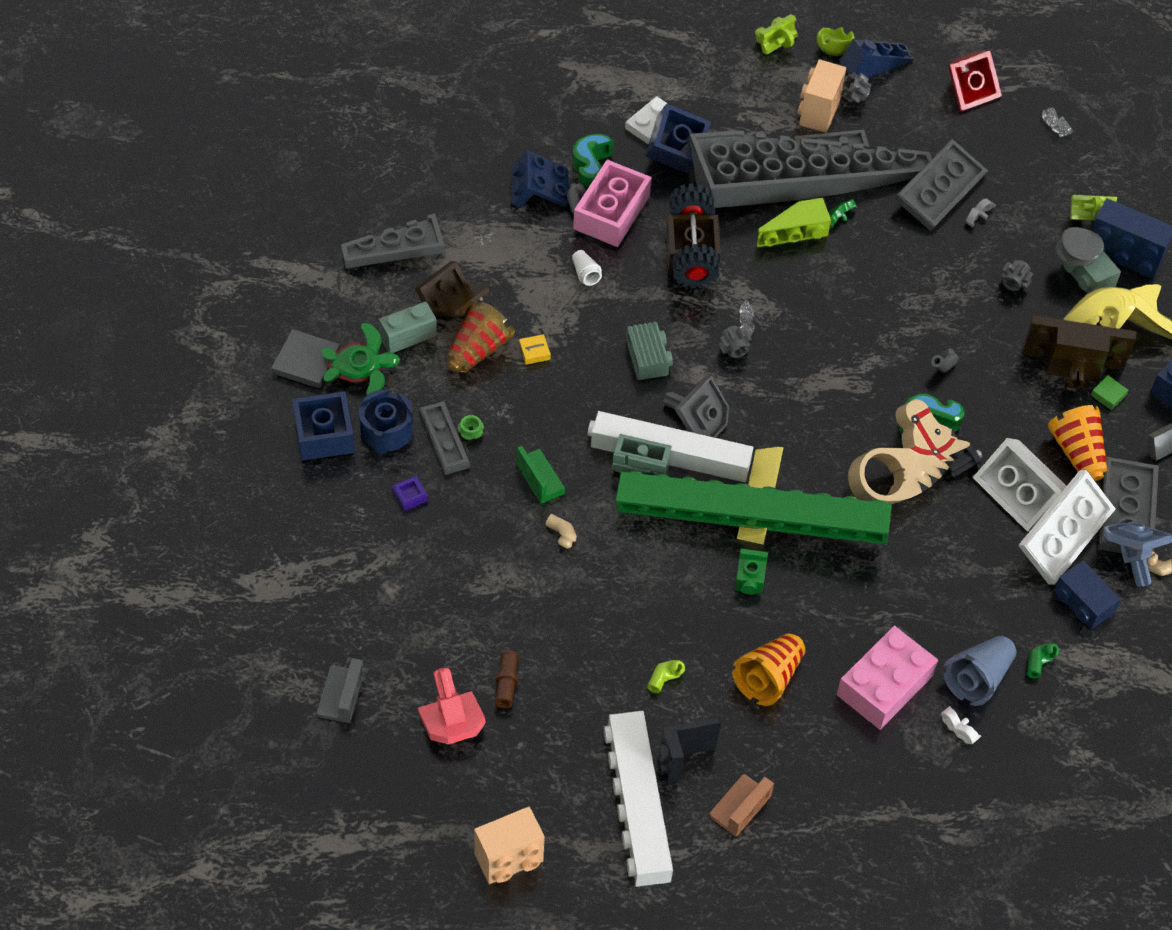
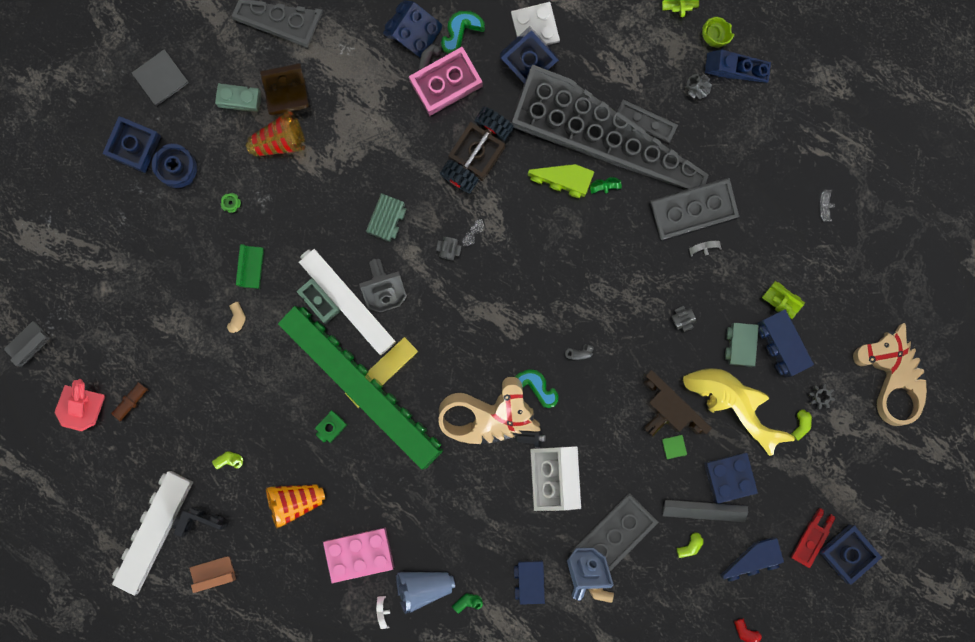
camera: 40 degrees right, 30 degrees up
(360, 361) = (189, 107): green animal -> none
(410, 493) = (160, 226): dark purple tile -> none
(444, 438) = (209, 197): dark grey tile -> none
(509, 845) = (50, 517): light nougat brick -> none
(534, 349) = (314, 165): yellow tile -> none
(587, 269) = (393, 123): white cone -> none
(821, 95) = (664, 81): light nougat brick -> none
(974, 79) = (791, 131): red slope -> none
(1067, 527) = (552, 531): white tile -> none
(1079, 246) = (739, 330): dark grey piece -> none
(1081, 439) = (617, 476): light orange cone -> none

